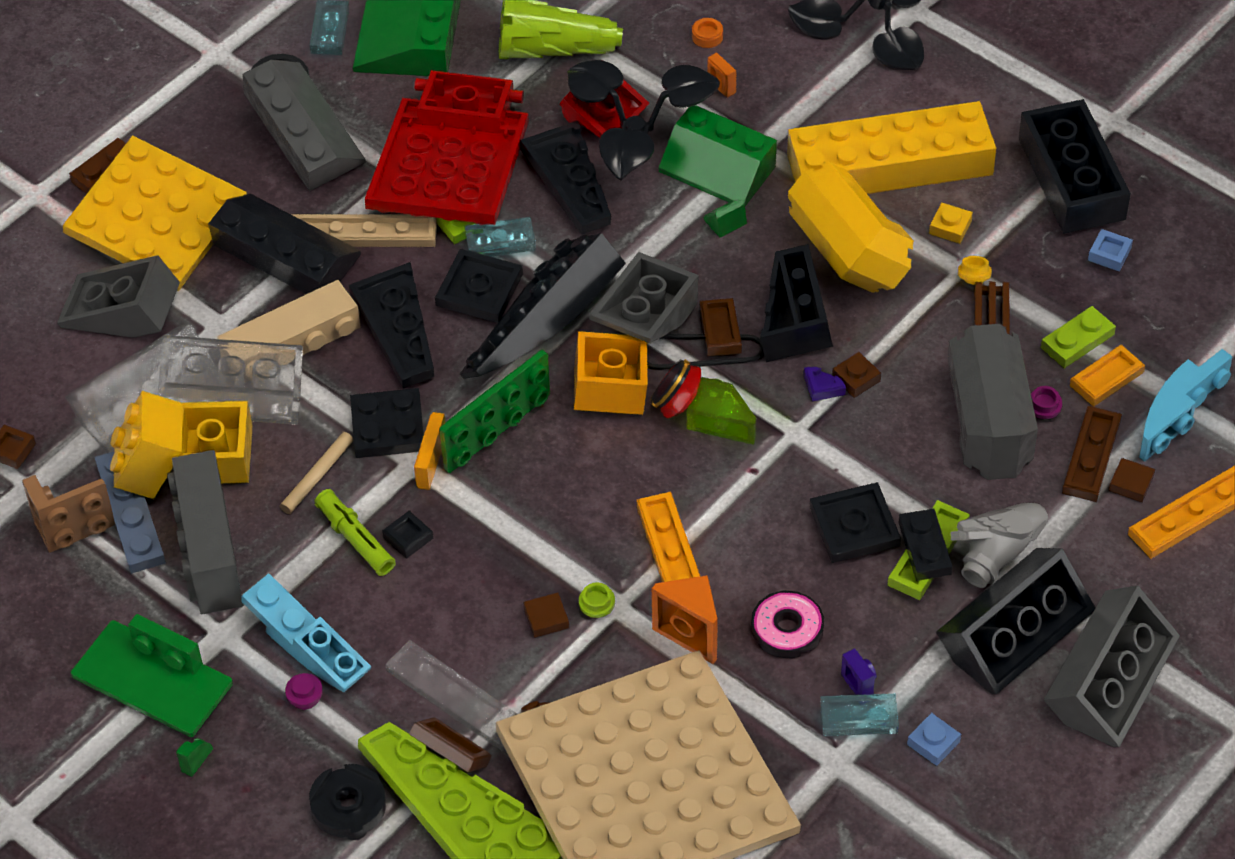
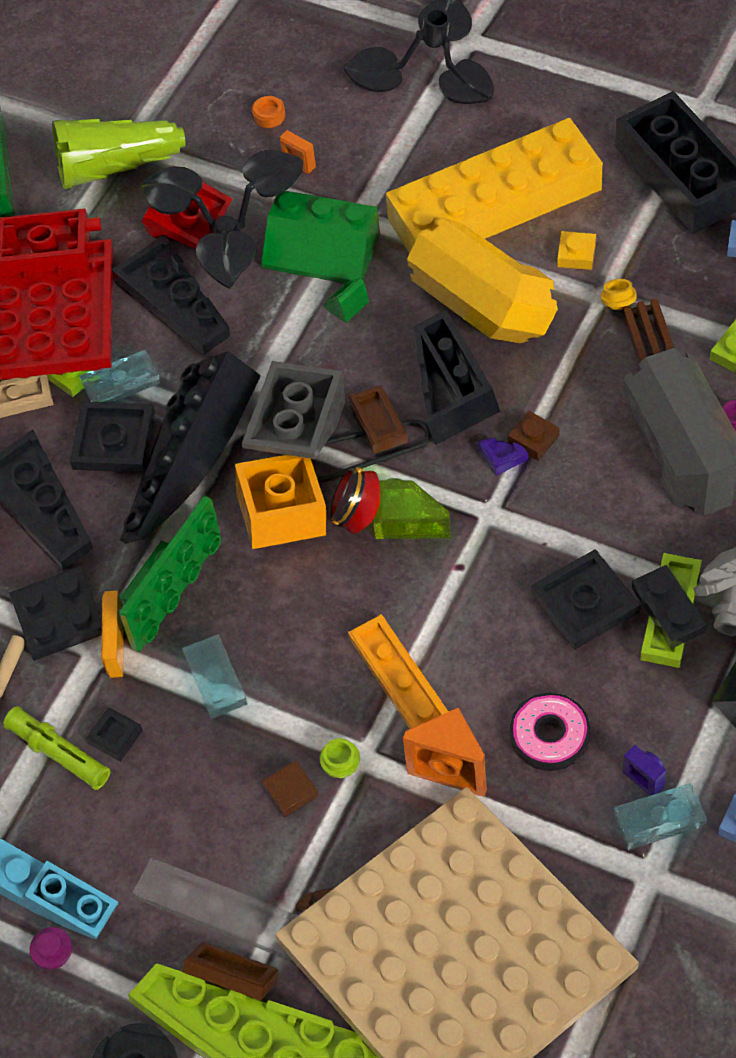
camera: 10 degrees left, 5 degrees up
(508, 507) = (214, 676): none -> clear light blue plate

